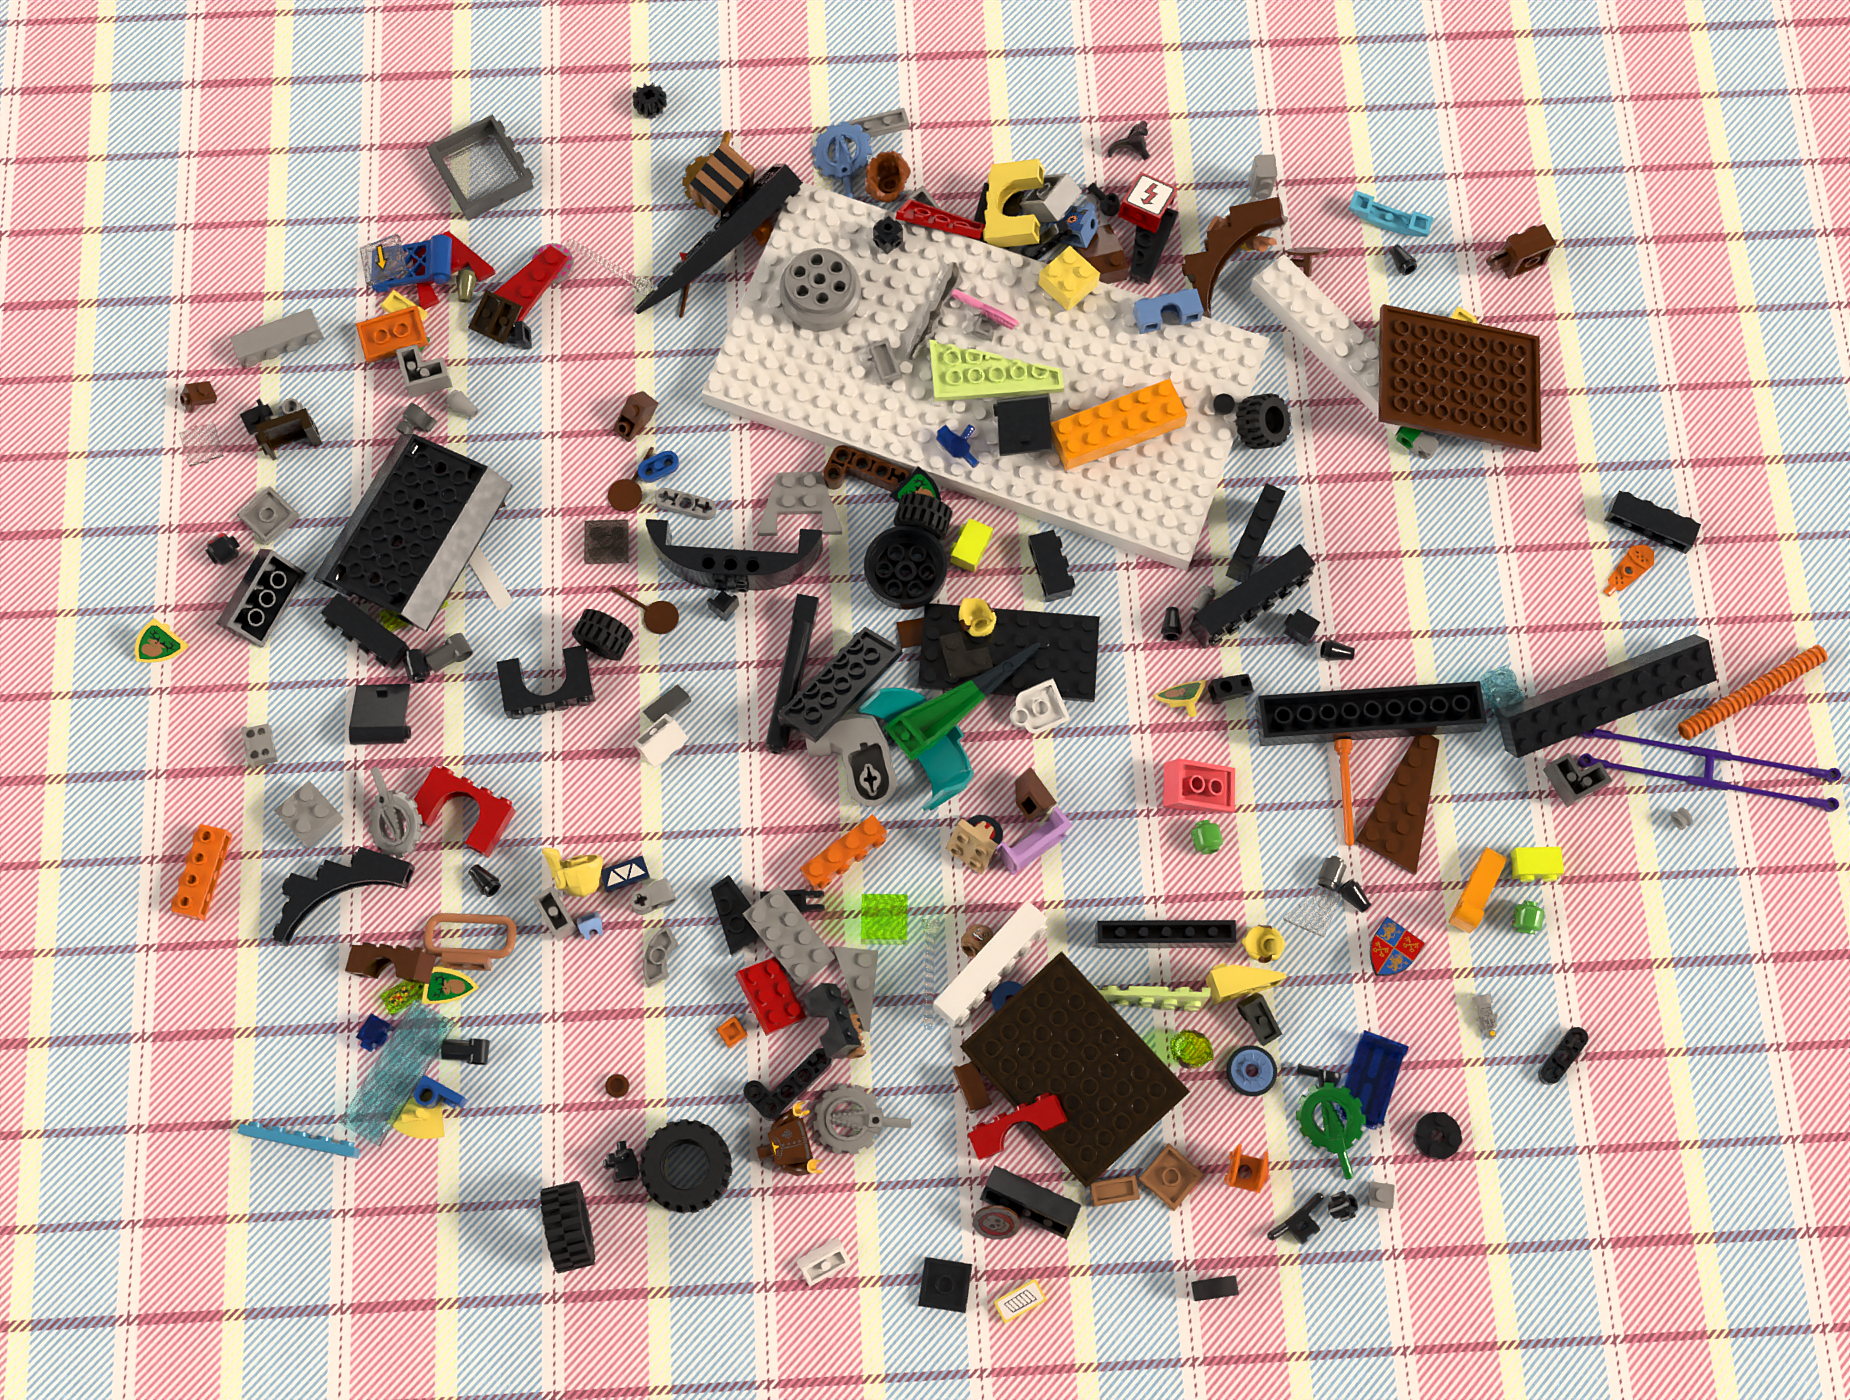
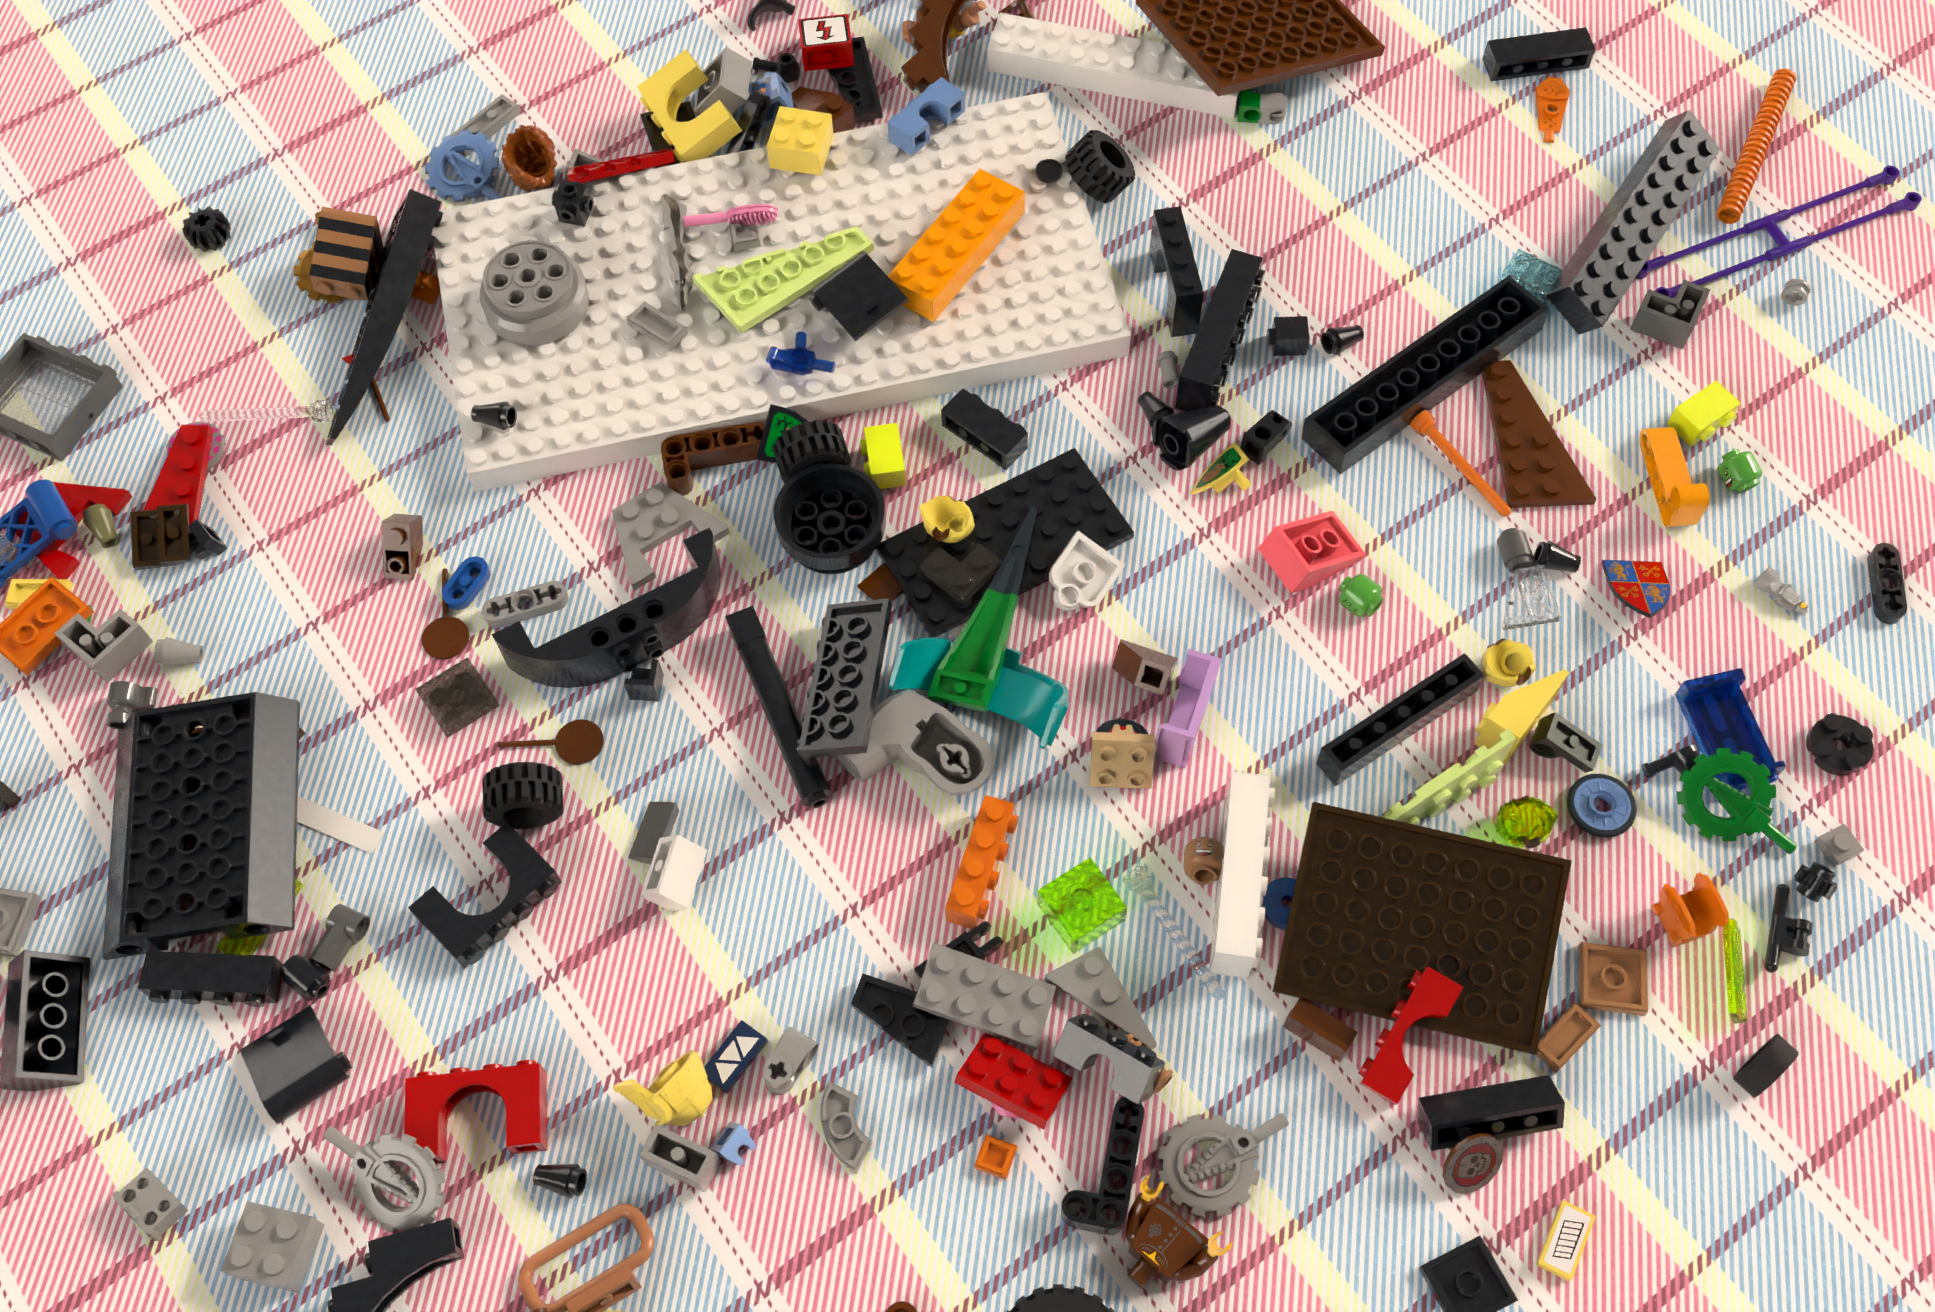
camera: 30 degrees left, 10 degrees down
(743, 365) = (497, 415): none -> black cone
(1180, 656) = (1189, 434): none -> black cone
(1246, 1223) = (1734, 972): none -> clear neon green tile

